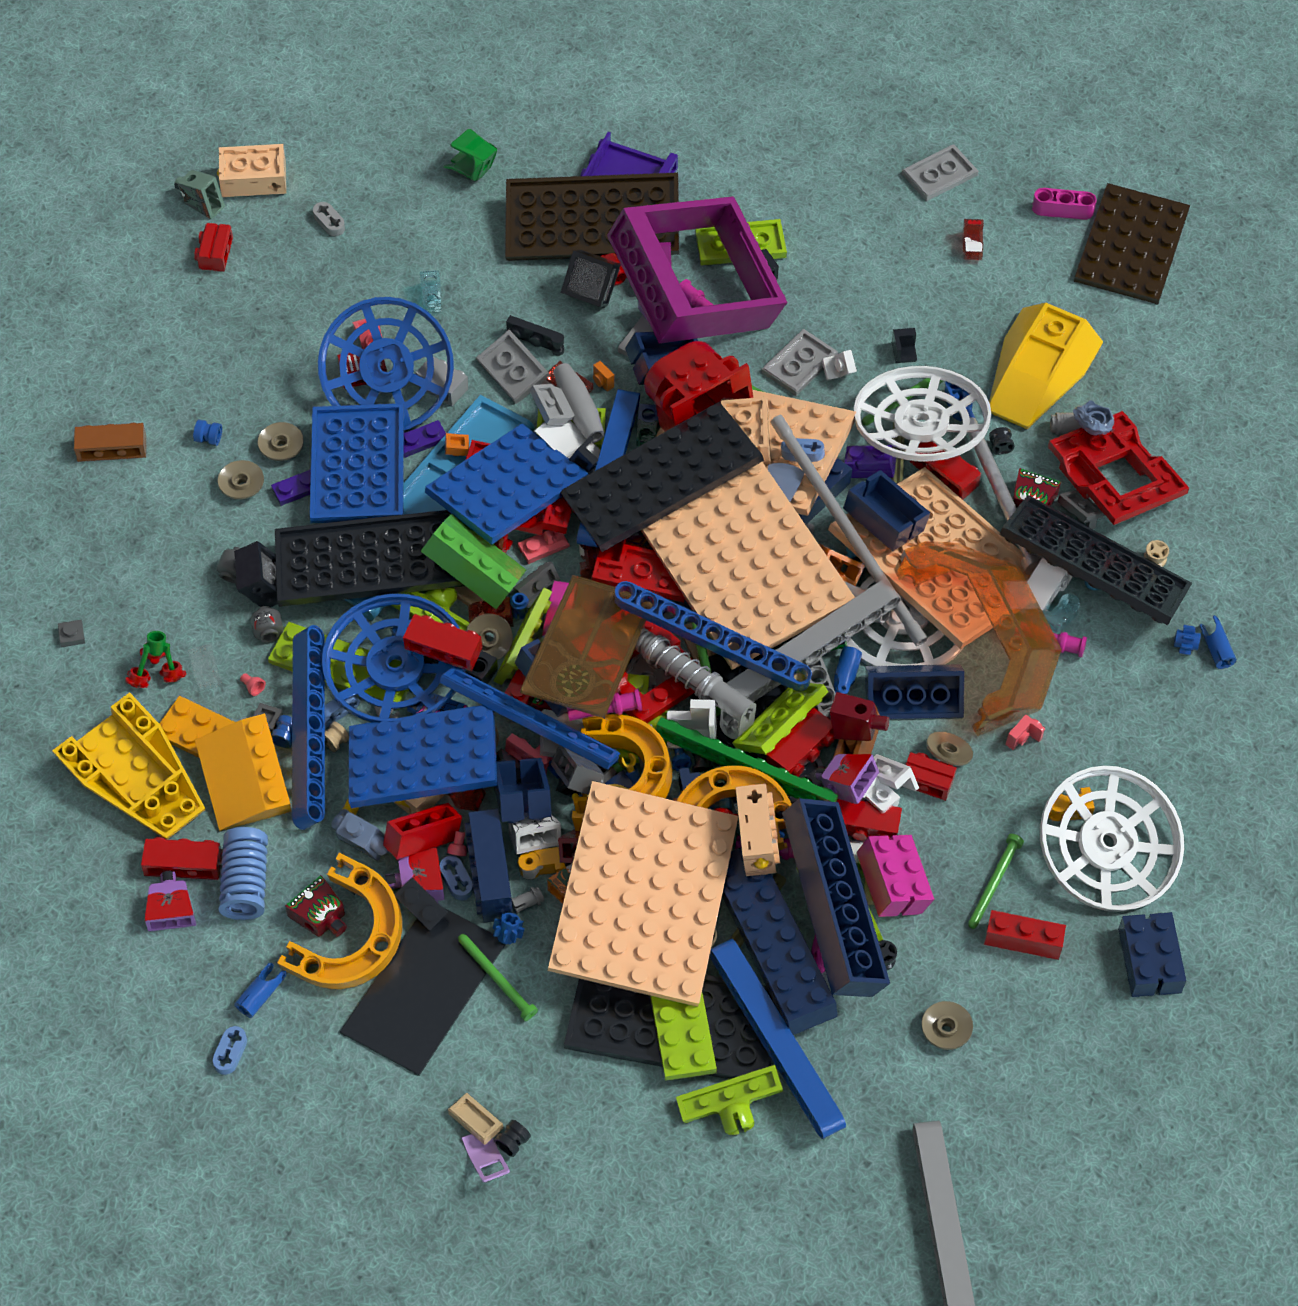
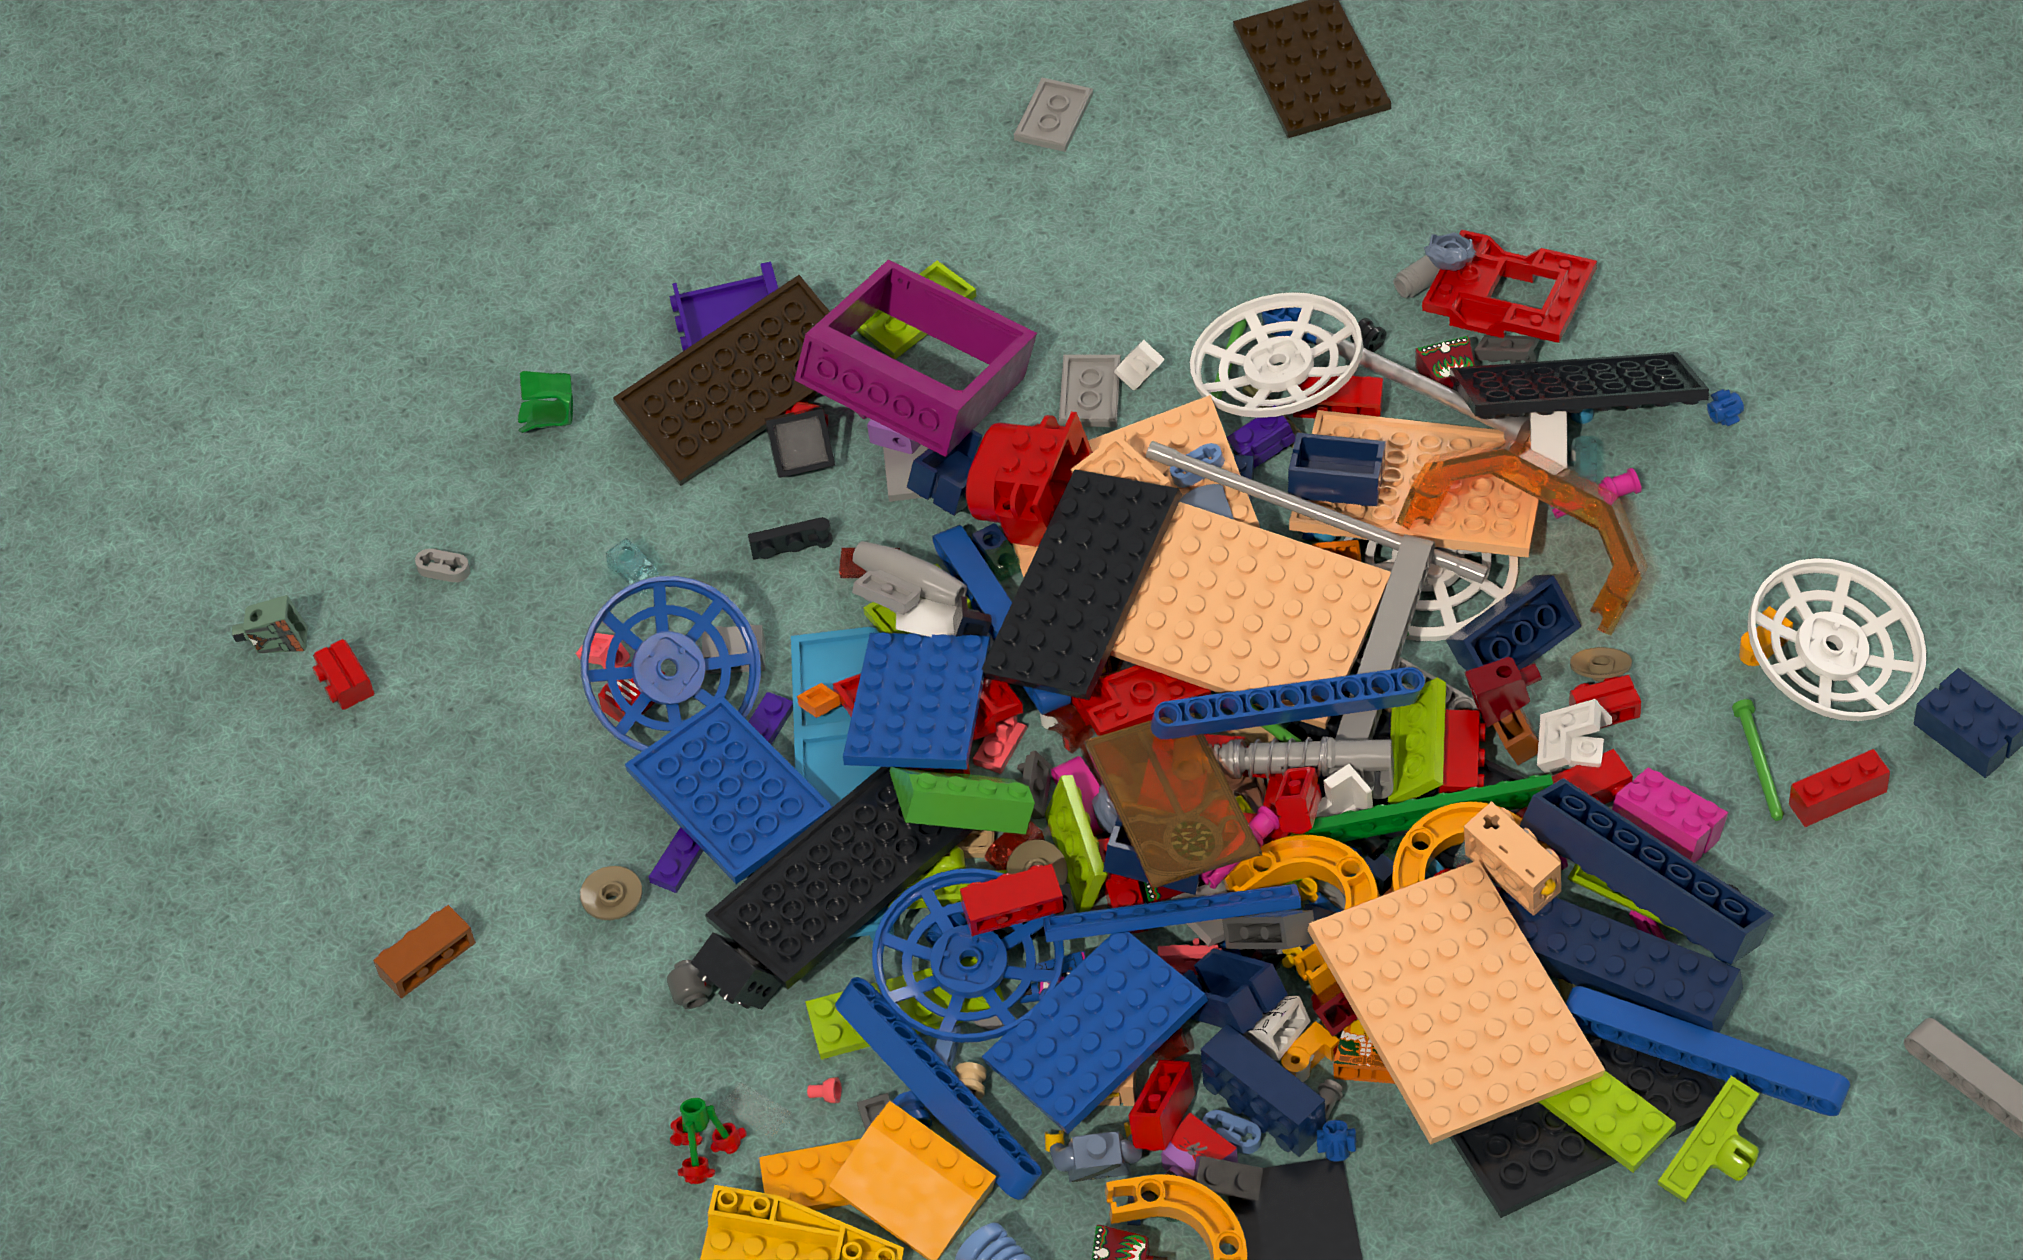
camera: 30 degrees left, 5 degrees down
(71, 633) = (573, 1177): dark grey plate -> none
(207, 432) = (525, 869): blue wheel -> none
(252, 170) = (311, 565): light nougat piece -> none
(266, 624) = (785, 1019): dark grey head -> none
(279, 434) = (612, 816): dark tan dish -> none
(457, 847) = (1205, 1099): coral piece -> none
(512, 366) = (796, 586): light grey tile -> none
(519, 604) = (1040, 816): blue pin -> none
(527, 1010) = (1369, 1197): bright green bar -> none
(603, 376) = (902, 533): orange plate -> none
(663, 701) = (1298, 800): none -> red brick
(847, 669) = (1427, 654): blue piece -> none
(849, 775) = (1539, 750): medium lavender torso -> none
(904, 345) = (1179, 307): black panel -> none
(950, 1015) = (1851, 914): dark tan dish -> none
(973, 239) = (1152, 158): clear red leg -> none
(1021, 732) = (1655, 594): coral bracket -> none
(1041, 362) = (1332, 233): yellow wedge -> none
(1064, 203) = (1210, 67): dark pink beam -> none
(1159, 549) = (1618, 339): tan wheel -> none
(1219, 646) = (1760, 394): blue piece -> none

